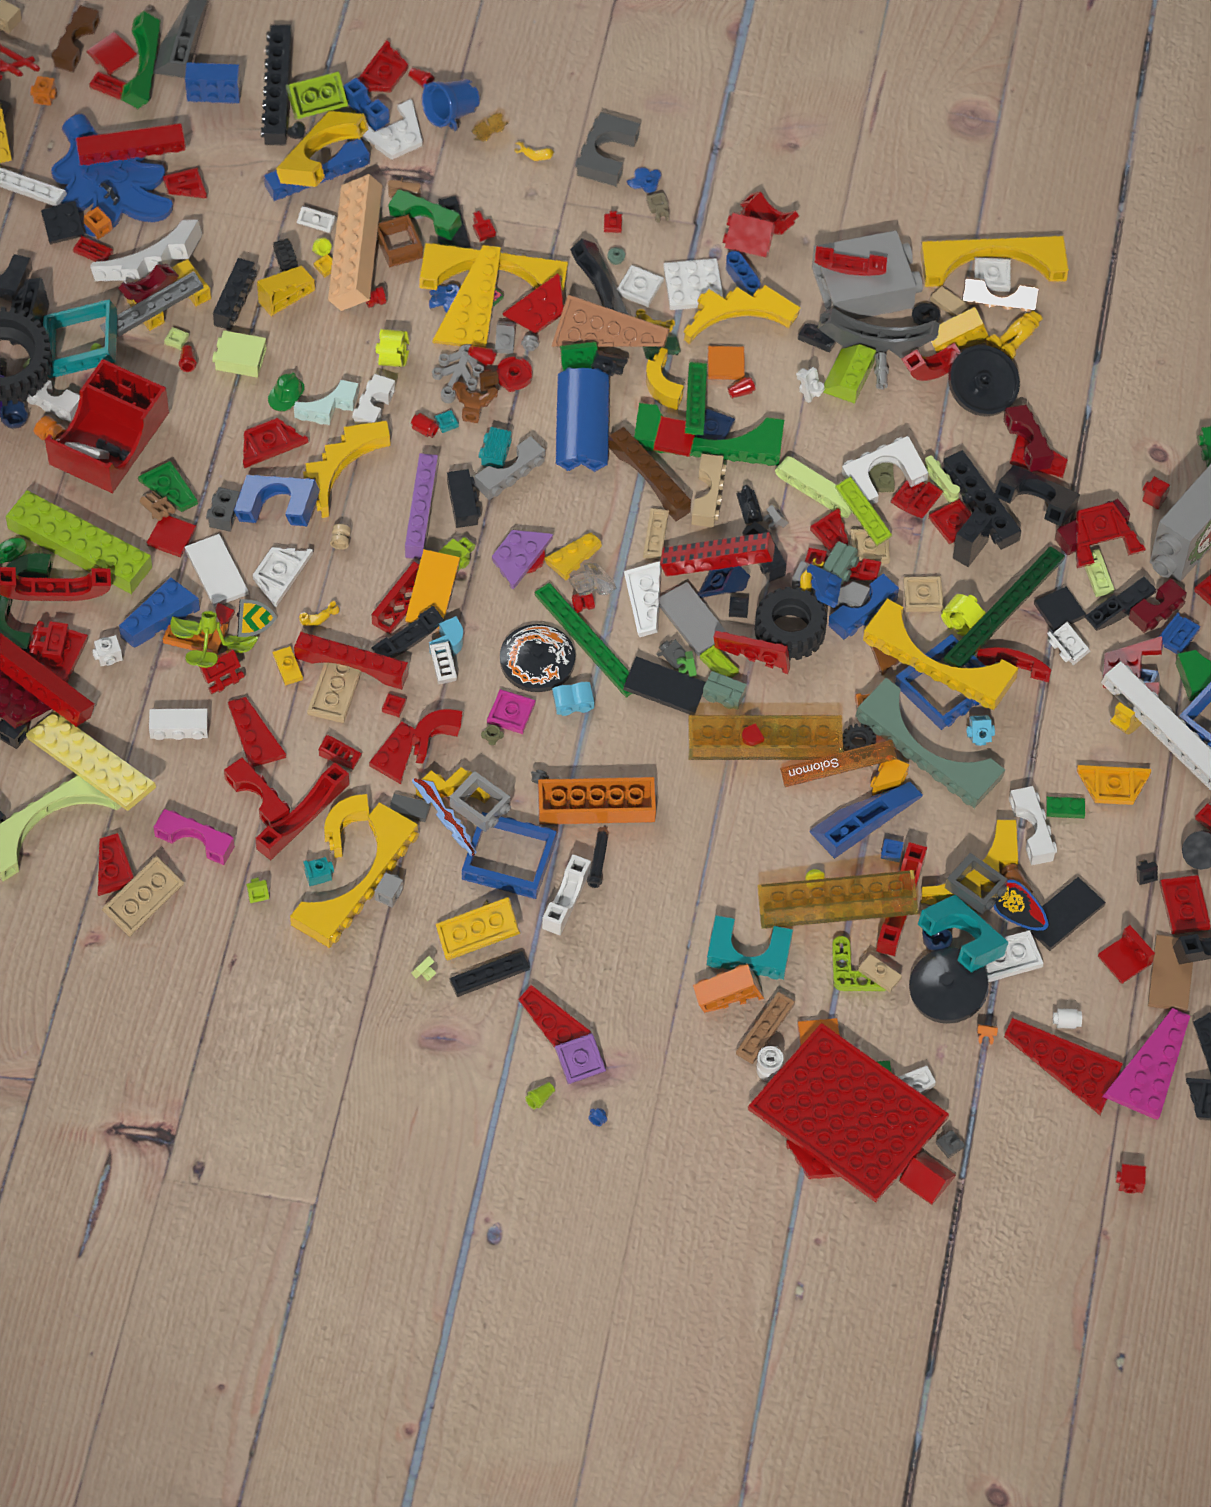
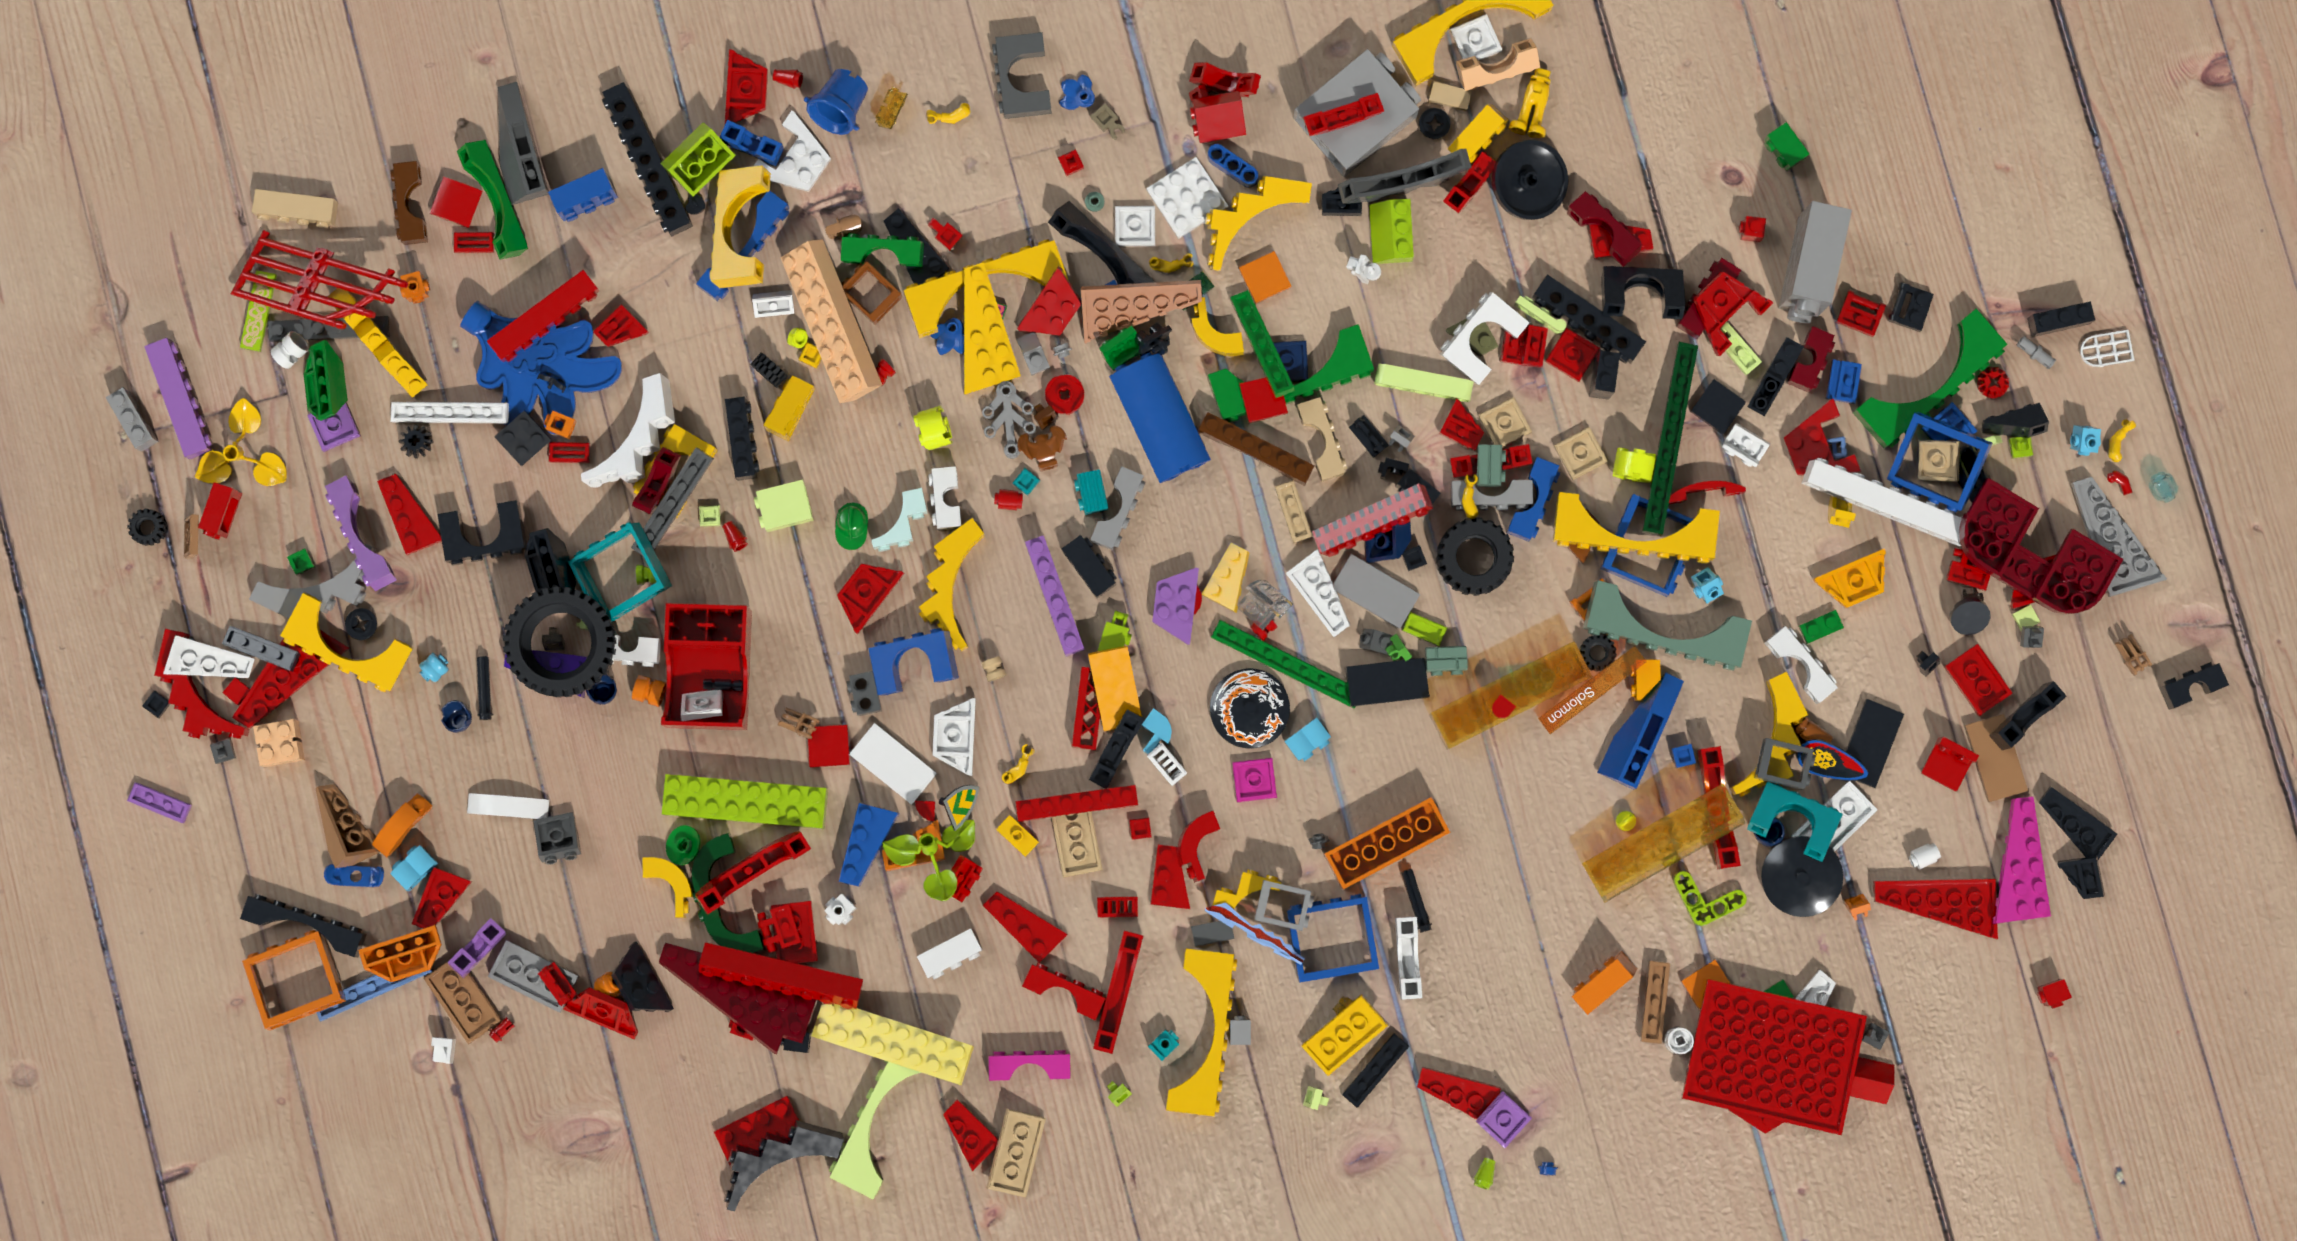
camera: 25 degrees left, 25 degrees up
(168, 483) = (797, 692): green wing -> none
(342, 814) = (1153, 981): yellow arch -> none
(482, 354) = (1025, 389): red cone -> none
(492, 729) = (1251, 820): olive plate -> none
(742, 387) = (1296, 301): red cone -> none
(754, 649) = (1423, 607): red wing -> none
(770, 963) = (1630, 930): teal arch -> none
(826, 585) = (1492, 503): blue wing -> none
(863, 511) = (1485, 394): lime tile -> none
(880, 973) = (1734, 896): tan plate -> none
(881, 370) = (1422, 213): light grey pin -> none

